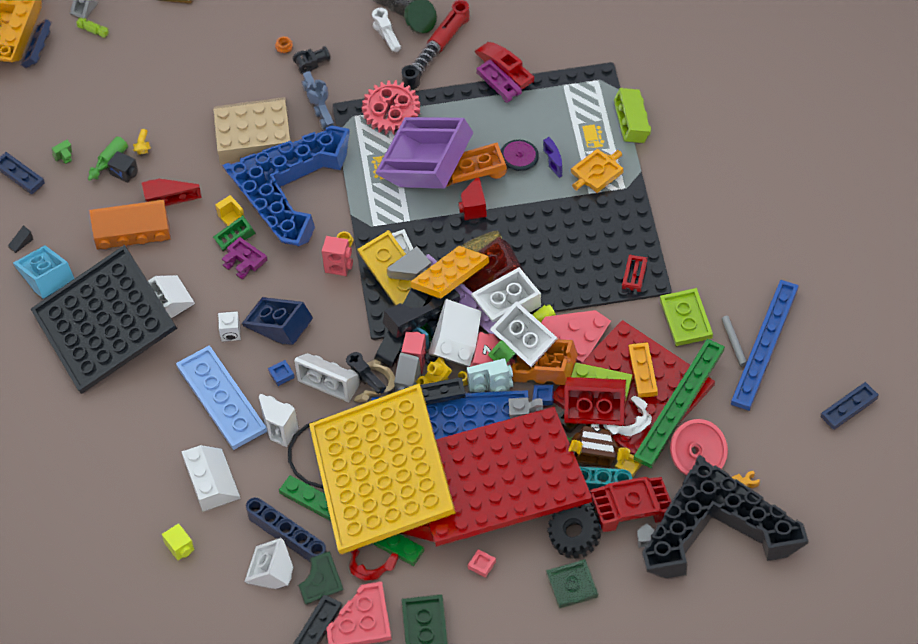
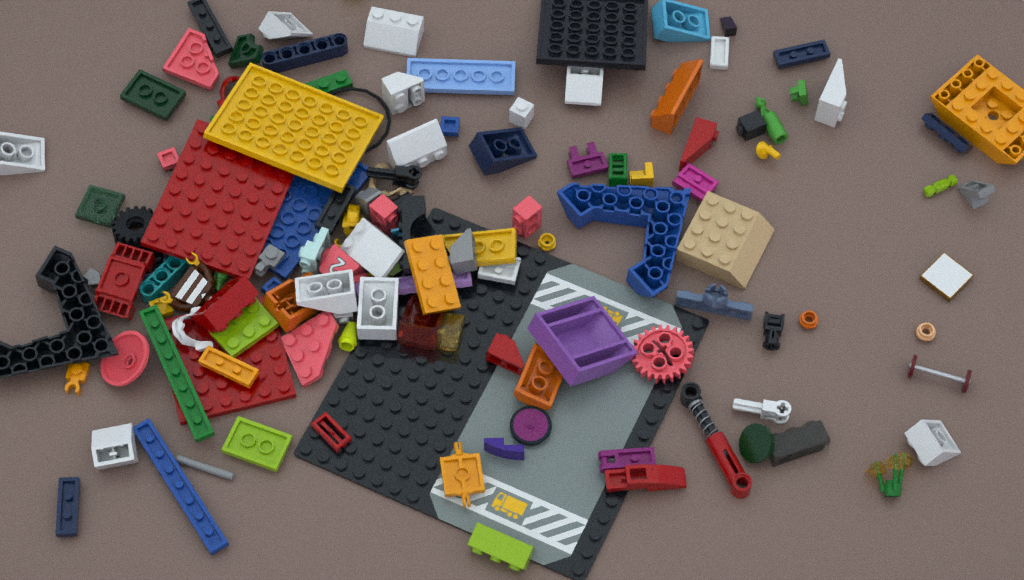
camera: 120 degrees right, 5 degrees up
(52, 123) = (832, 101): none -> white slope
(56, 231) = (719, 53): none -> white tile
(209, 174) = (696, 180): none -> dark pink plate
(501, 351) = (326, 267): bright green tile -> none
(777, 402) = (114, 447): none -> white slope

